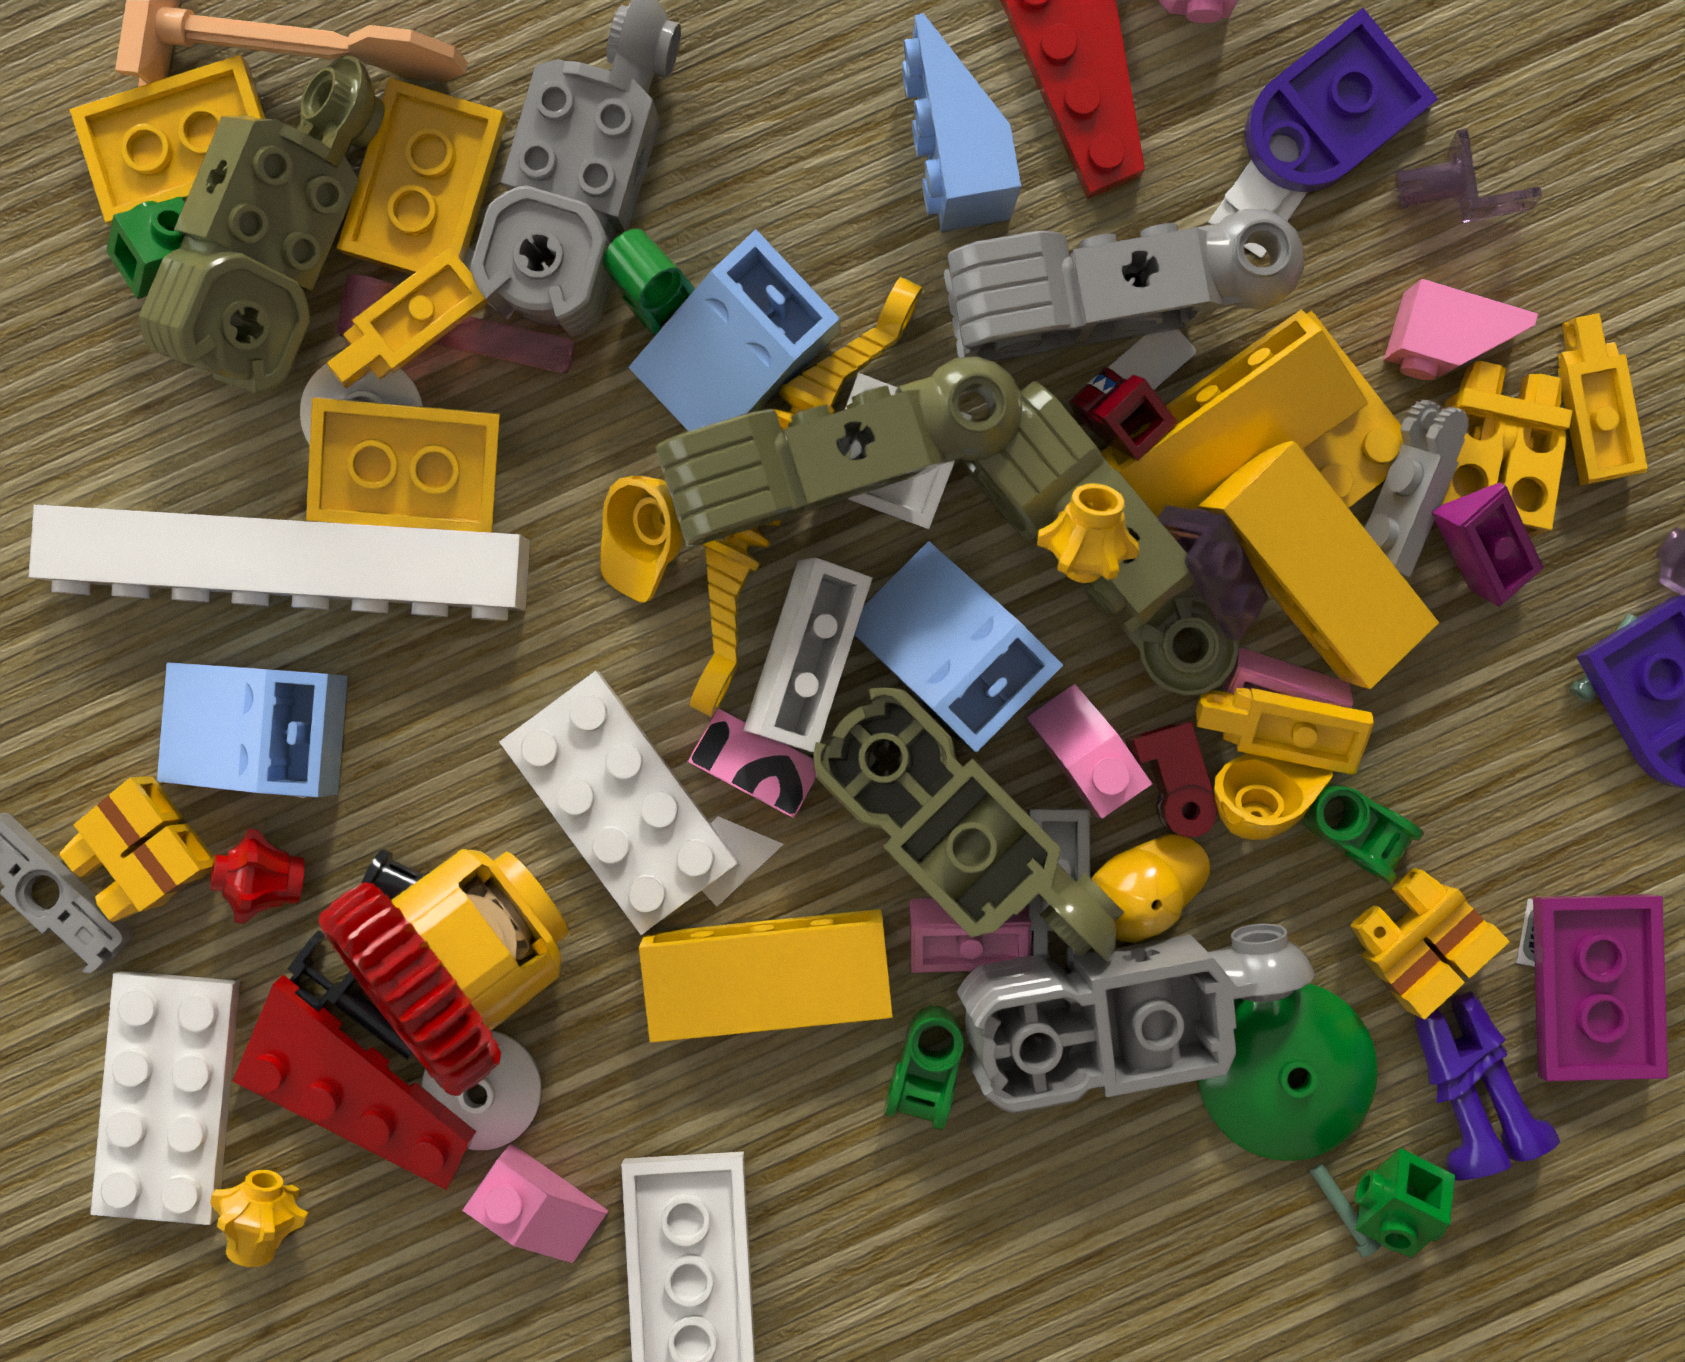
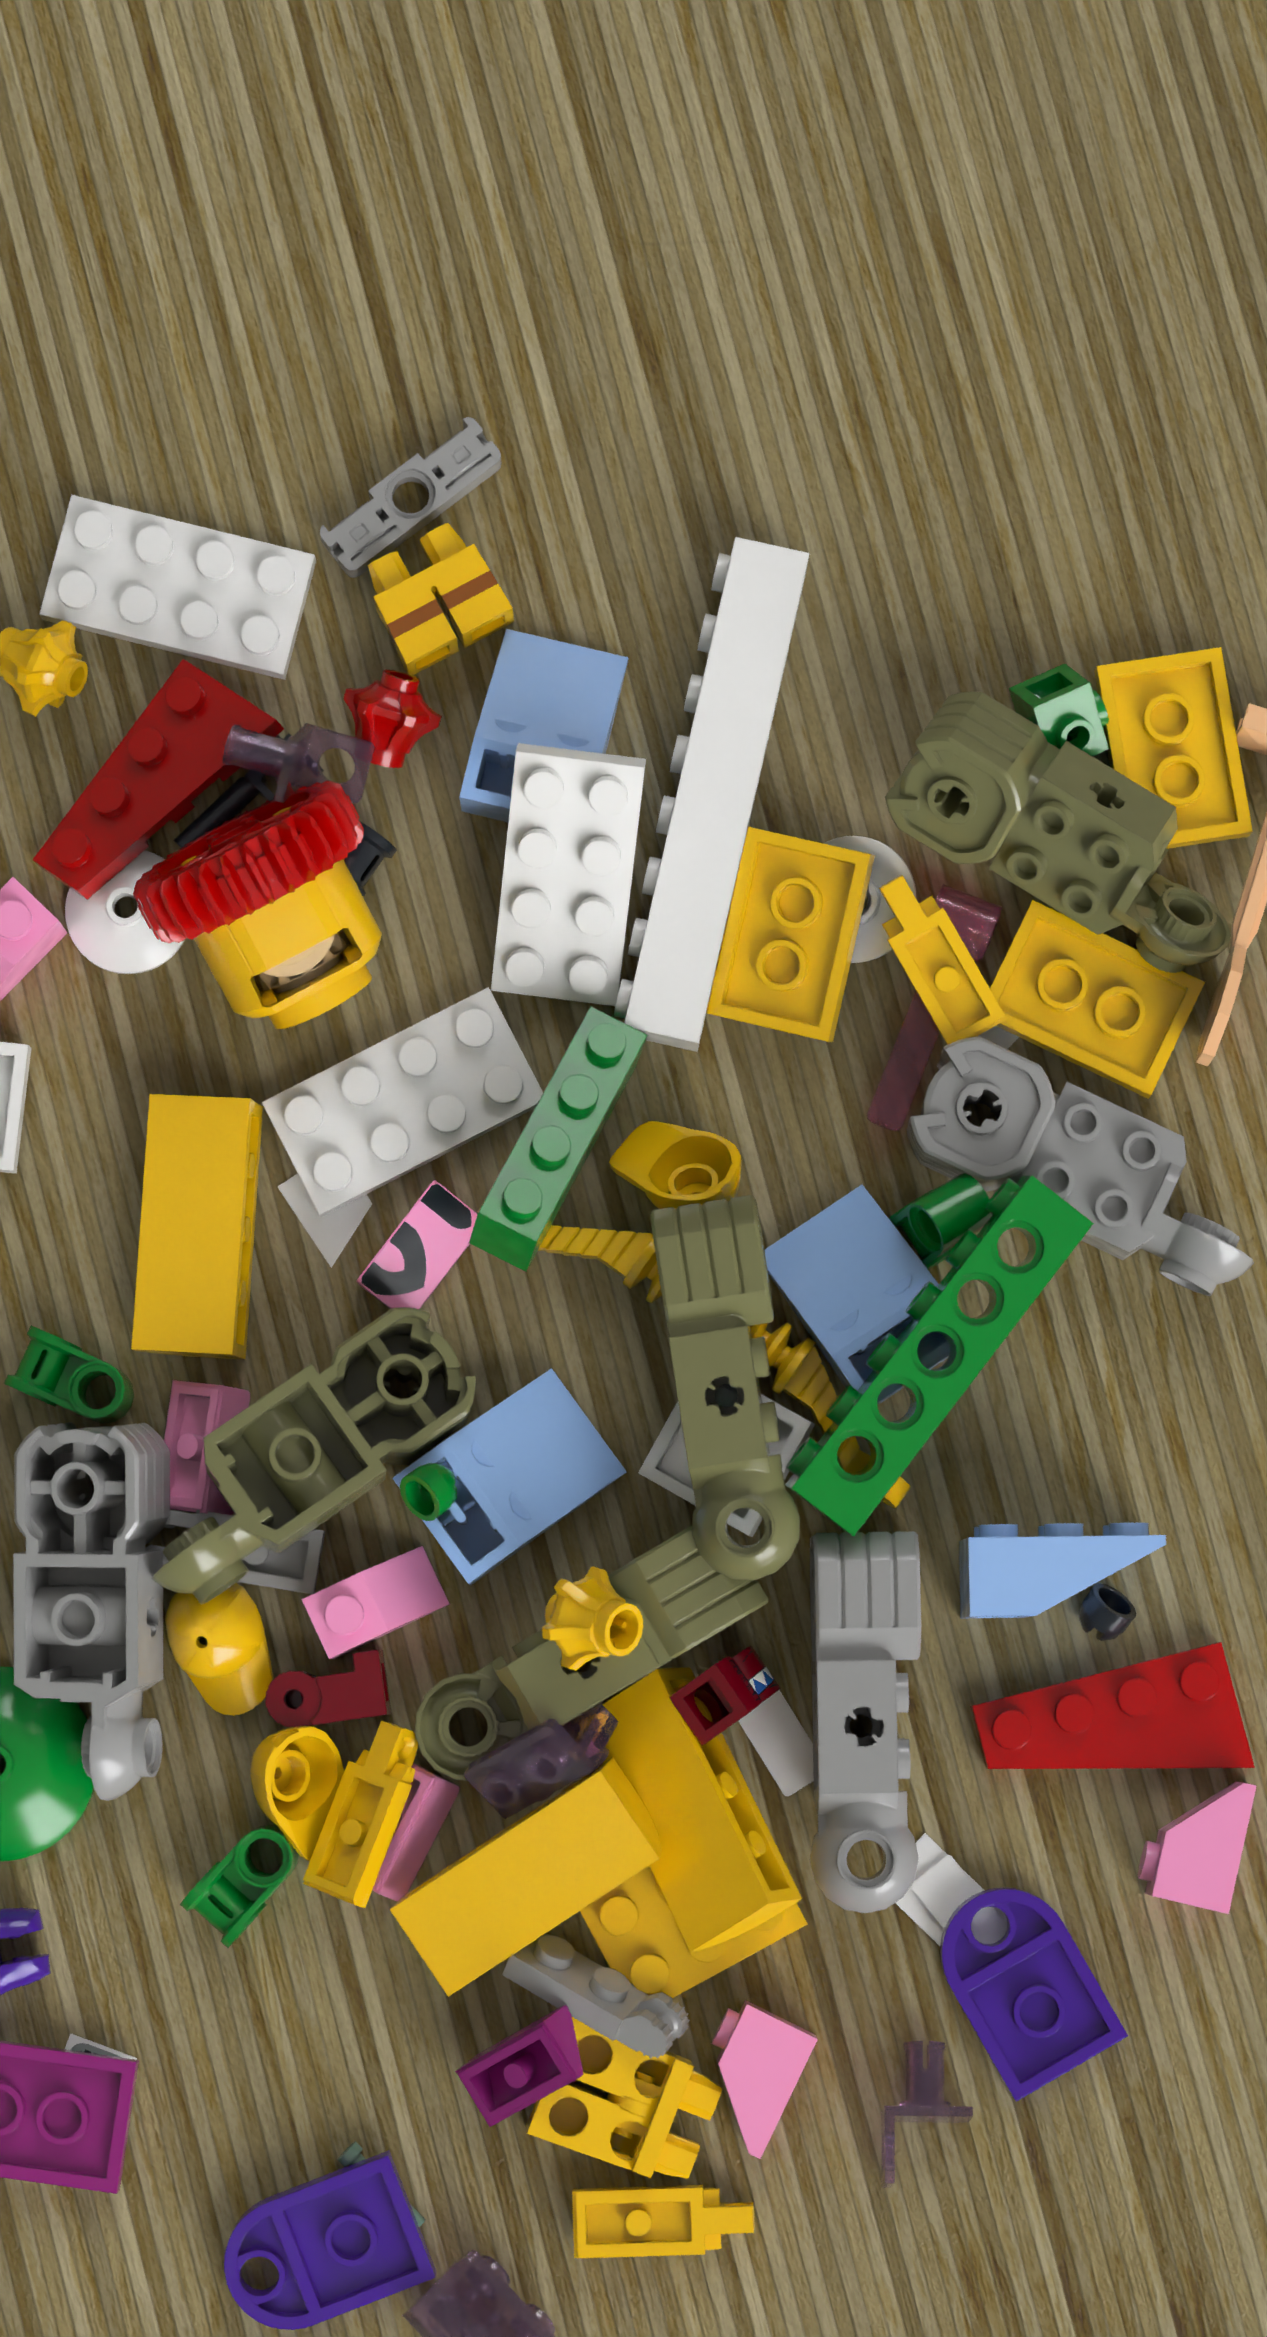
camera: 95 degrees right, 5 degrees down
(305, 958) = (298, 759): none -> bracket
(373, 682) = (567, 874): none -> white plate
(631, 650) = (557, 1139): none -> brick
(650, 163) = (1052, 1234): none -> green brick
(807, 653) = (524, 1321): white brick -> none
(985, 714) = (429, 1490): none -> green hinge
(992, 79) = (1106, 1611): none -> black hinge
(1428, 945) = (96, 1906): yellow hips -> none

